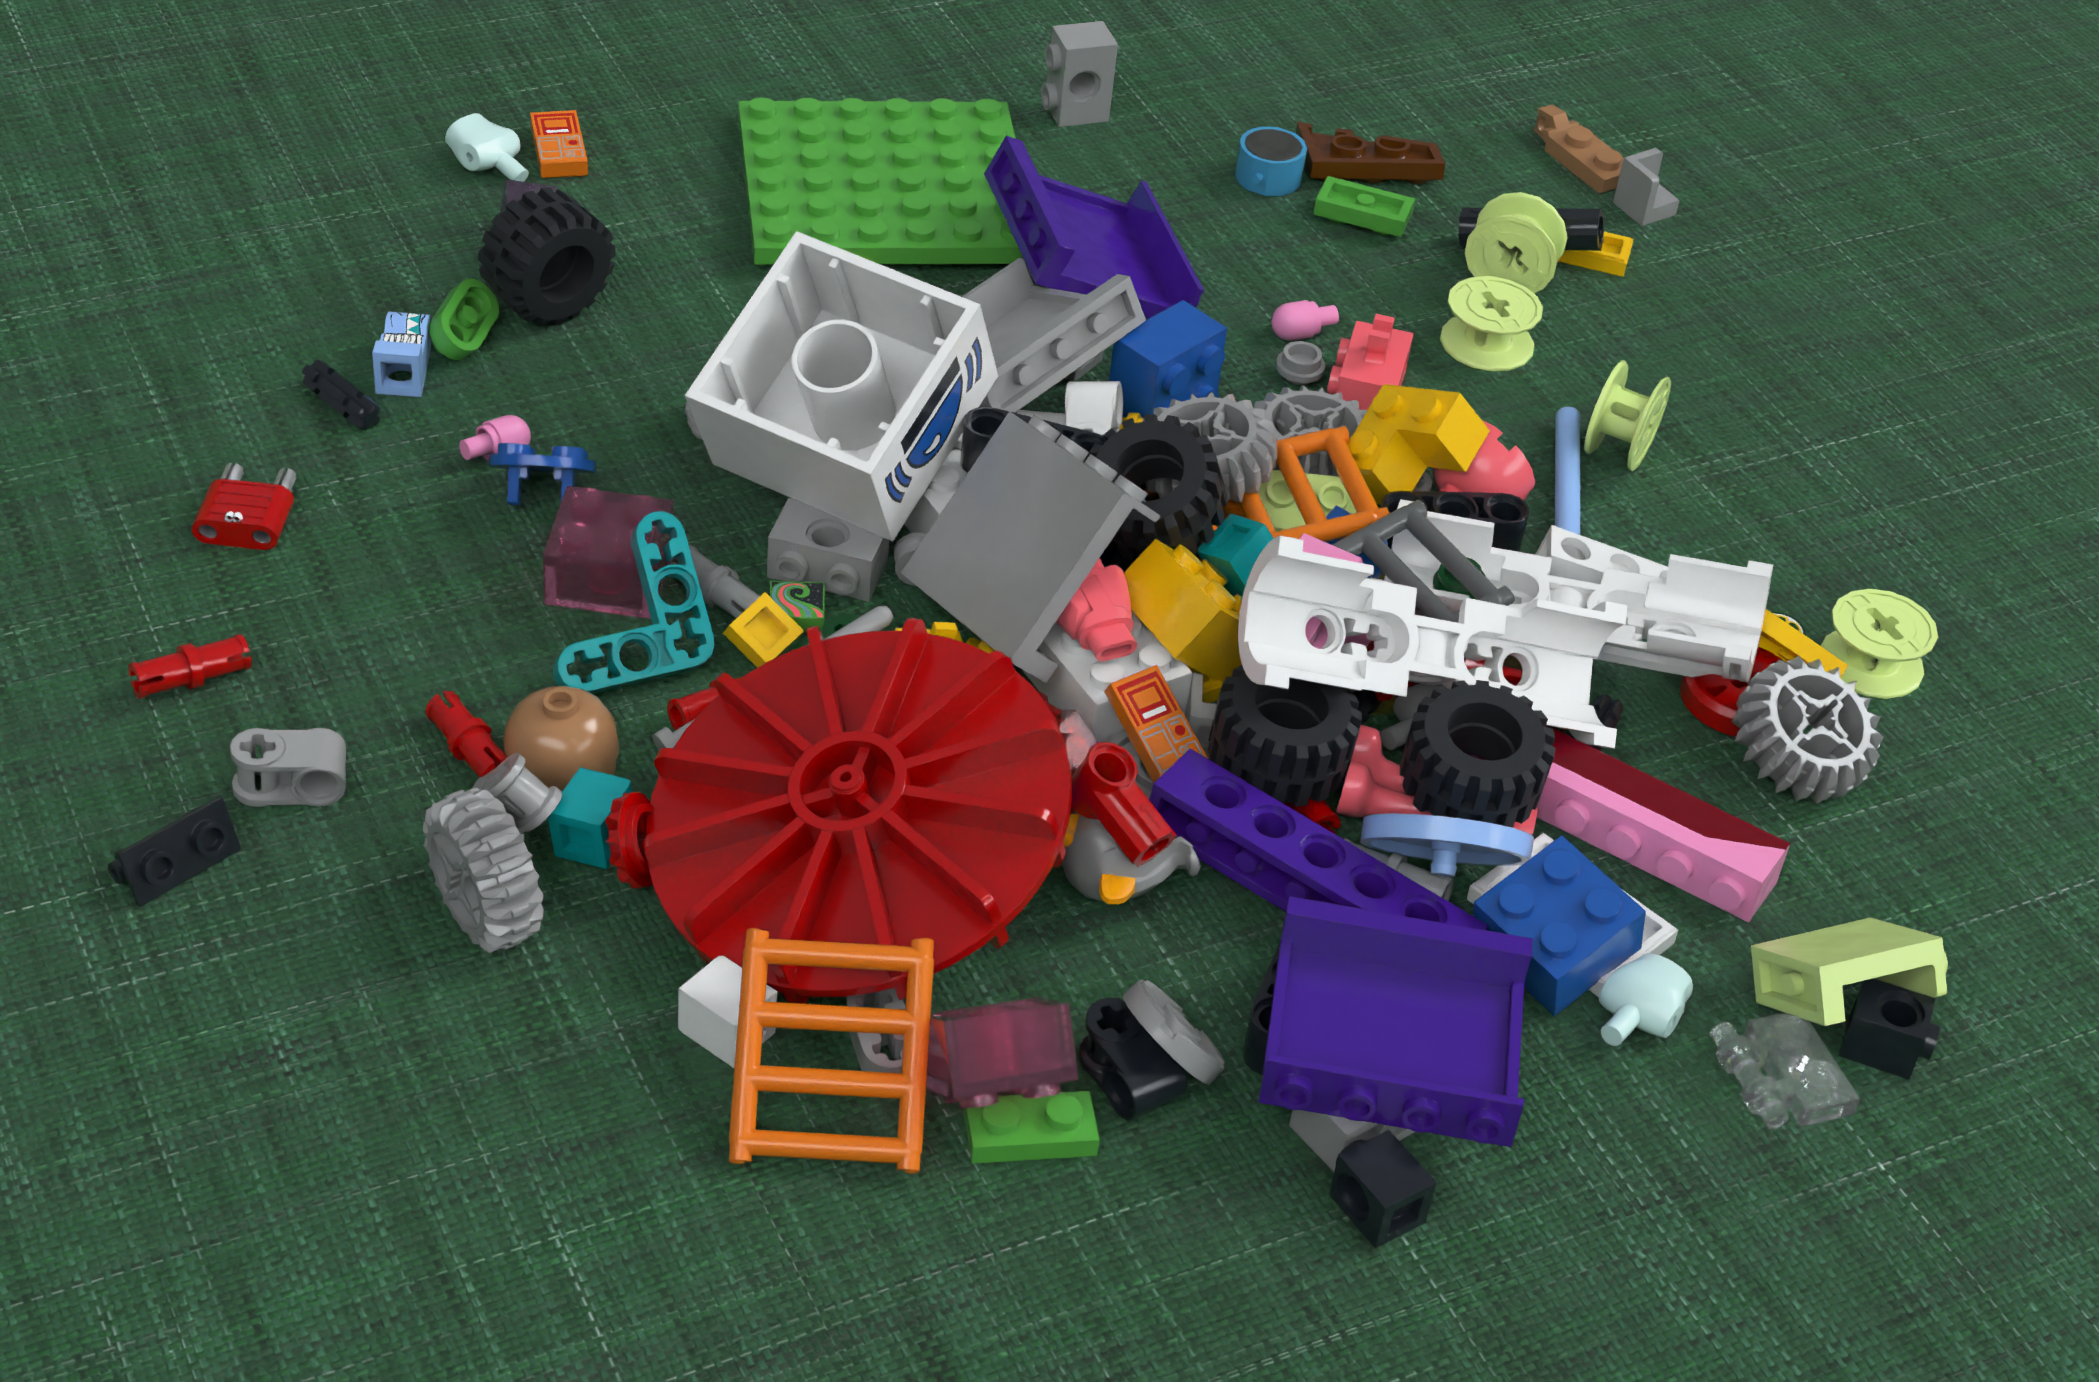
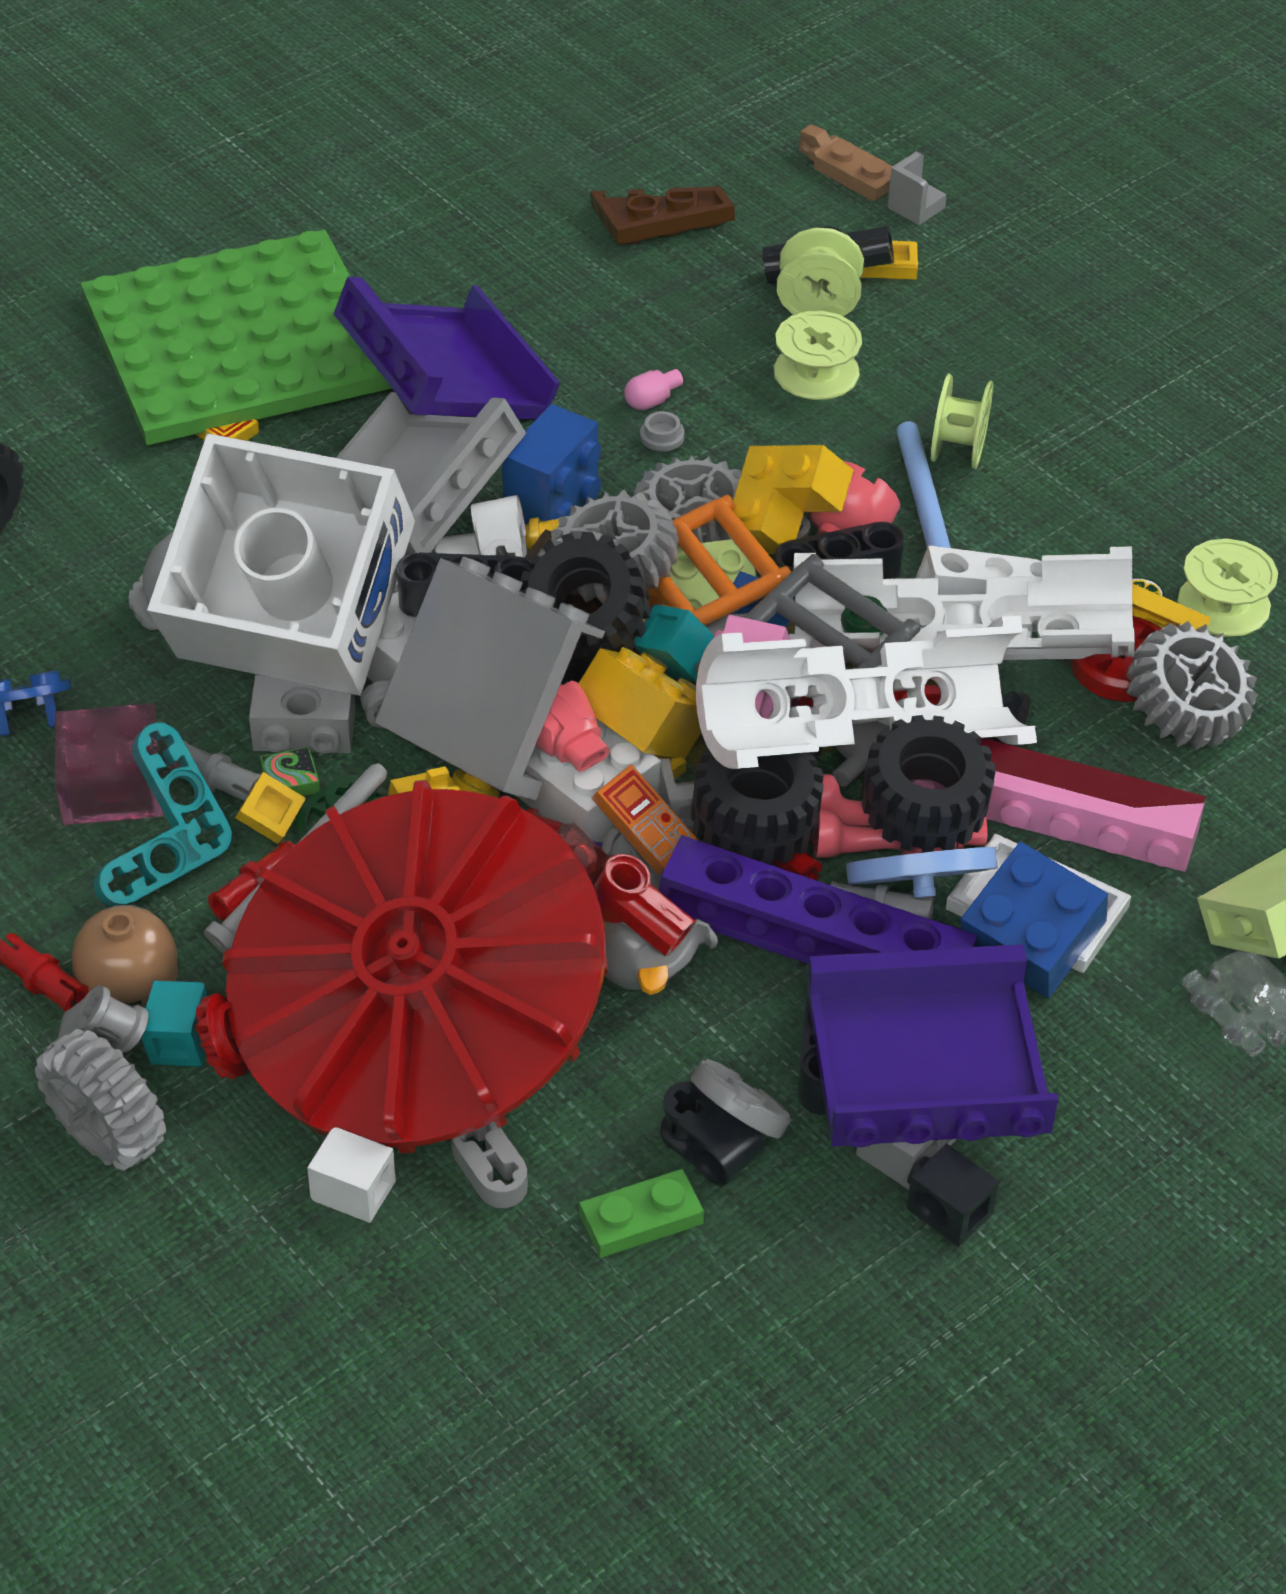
camera: 10 degrees left, 5 degrees up
(907, 1086) = (386, 1176): orange bar -> none
(1001, 1048) = (599, 1155): clear pink brick -> none
(1079, 73) = (385, 189): light grey brick -> none
(1270, 161) = (578, 236): dark azure piece -> none
(1364, 206) = (673, 263): bright green plate -> none
(1369, 360) = (726, 421): coral brick -> none
(1644, 996) = (1120, 964): light aqua piece -> none

